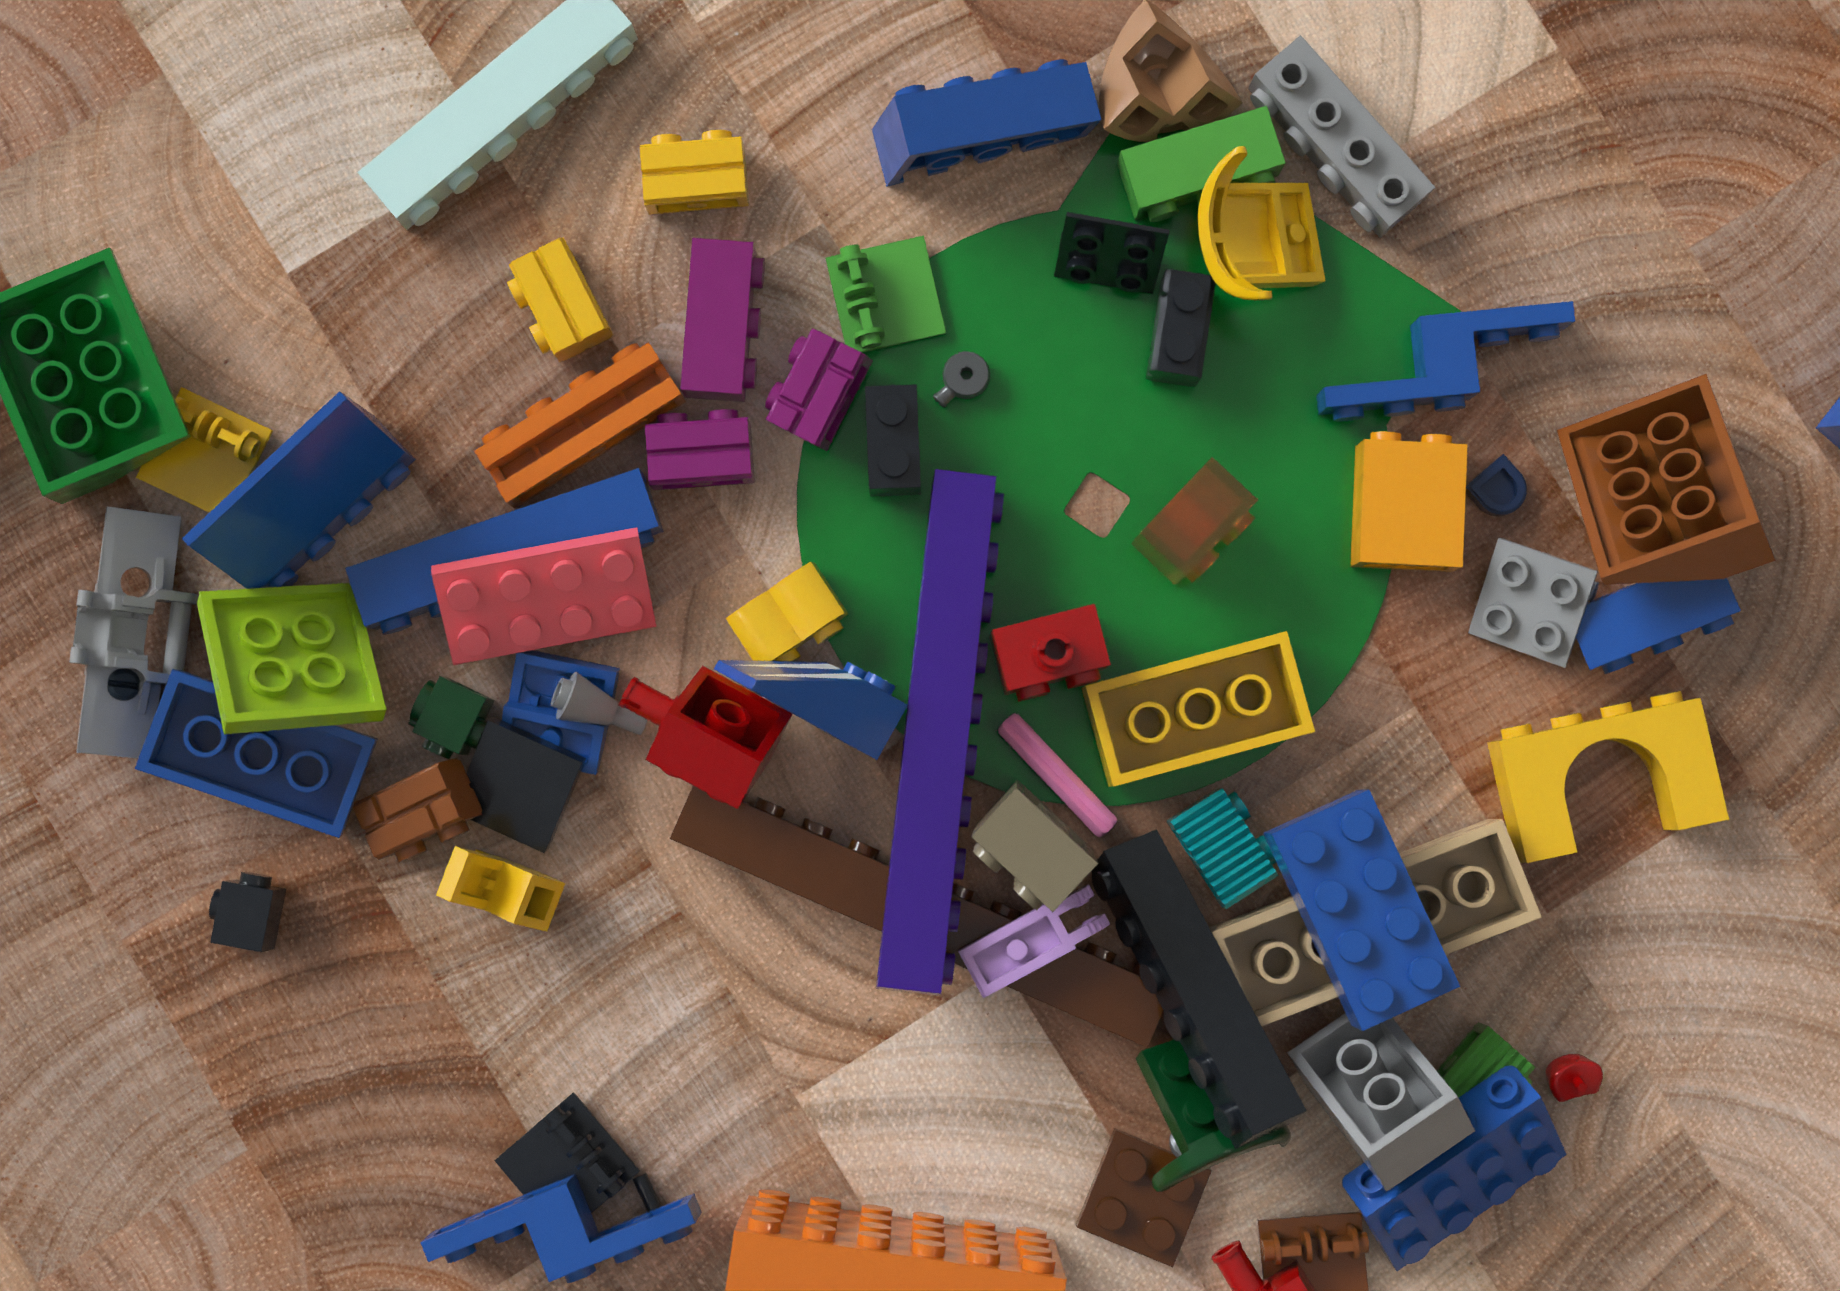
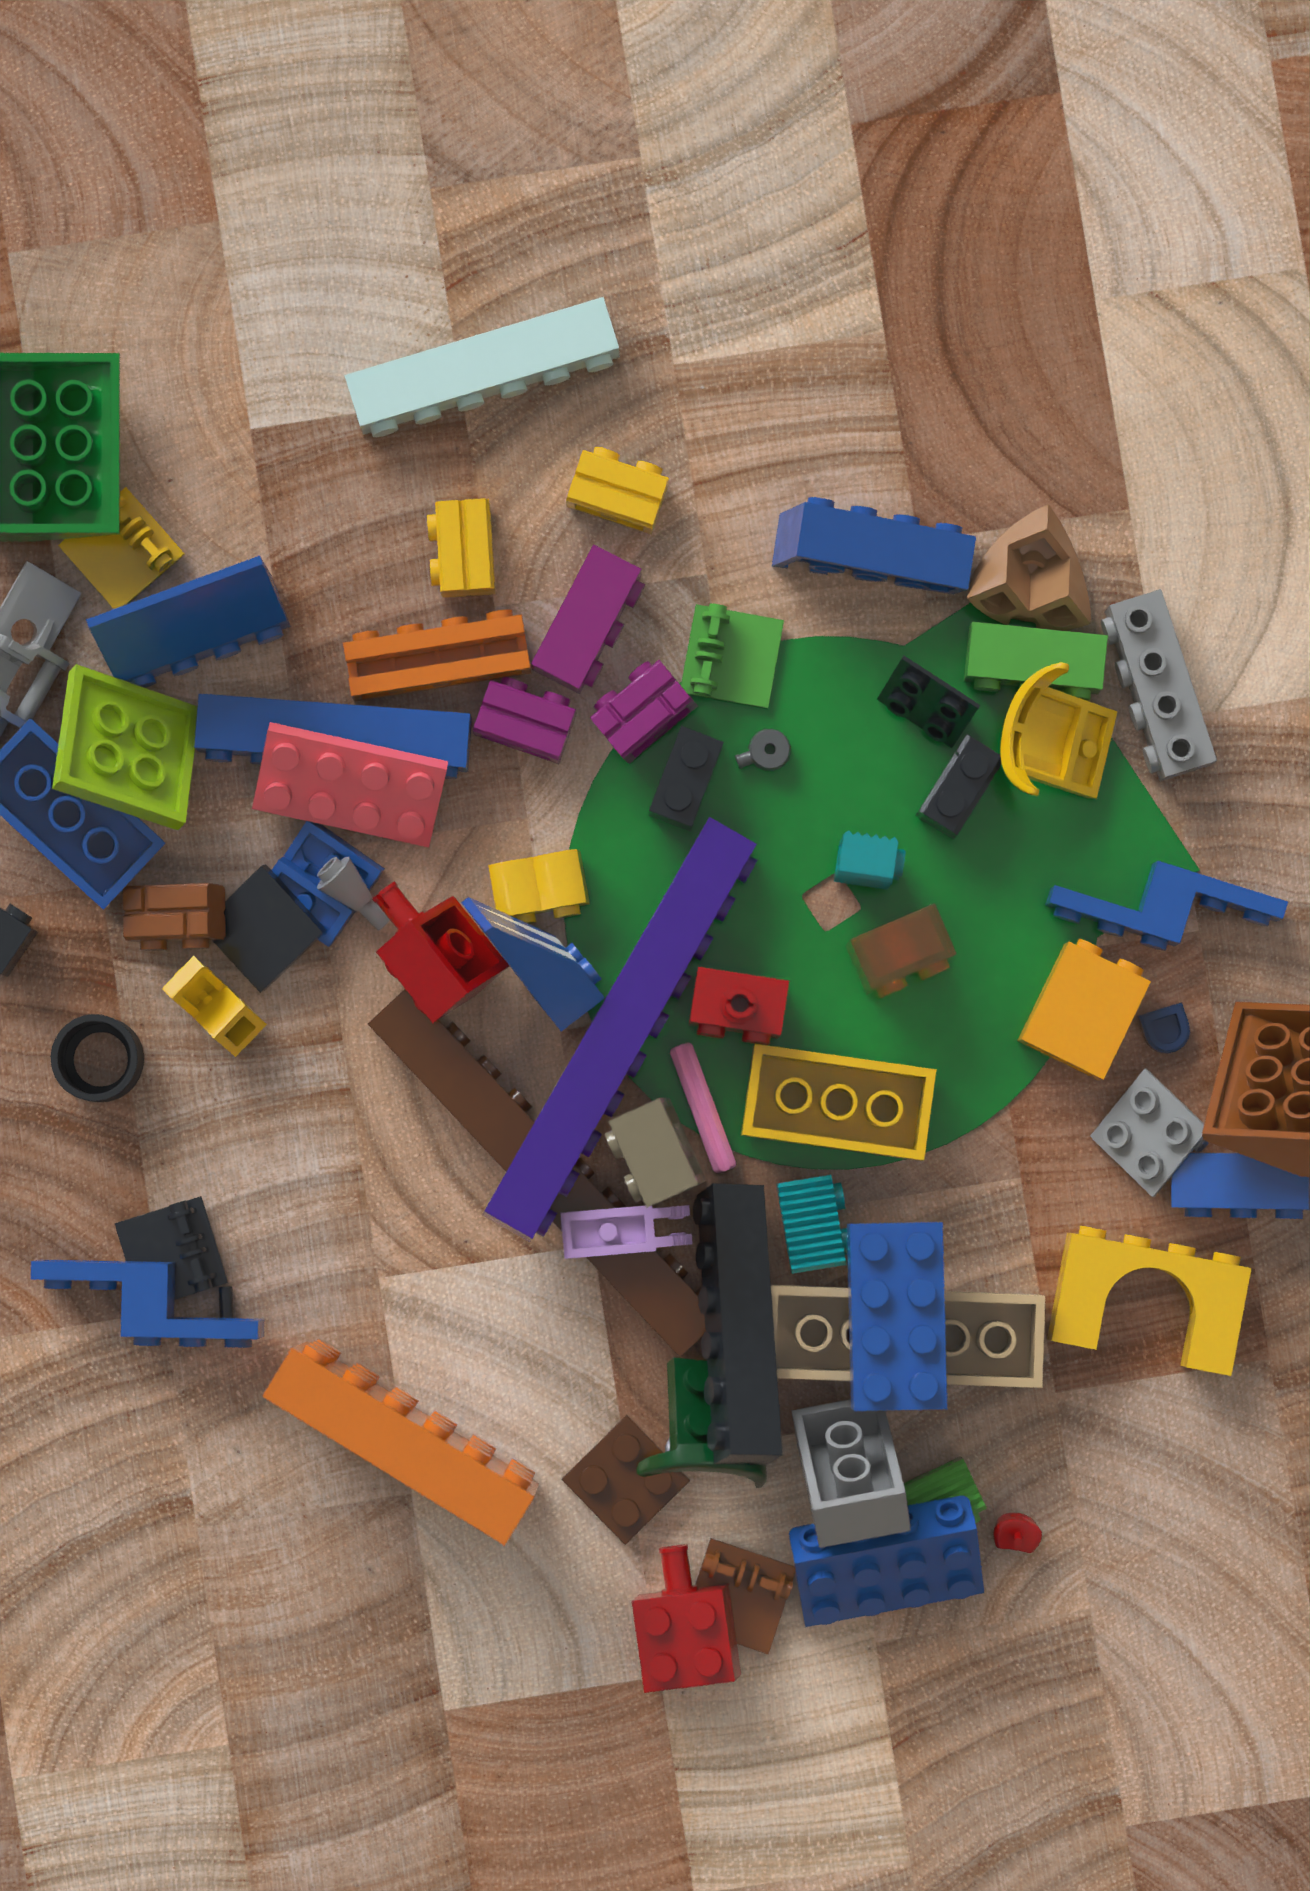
camera: 20 degrees right, 0 degrees up
(364, 1004) = (64, 1050): none -> black piece
(449, 717) = (230, 850): dark green brick -> none
(1120, 443) = (868, 860): none -> teal brick

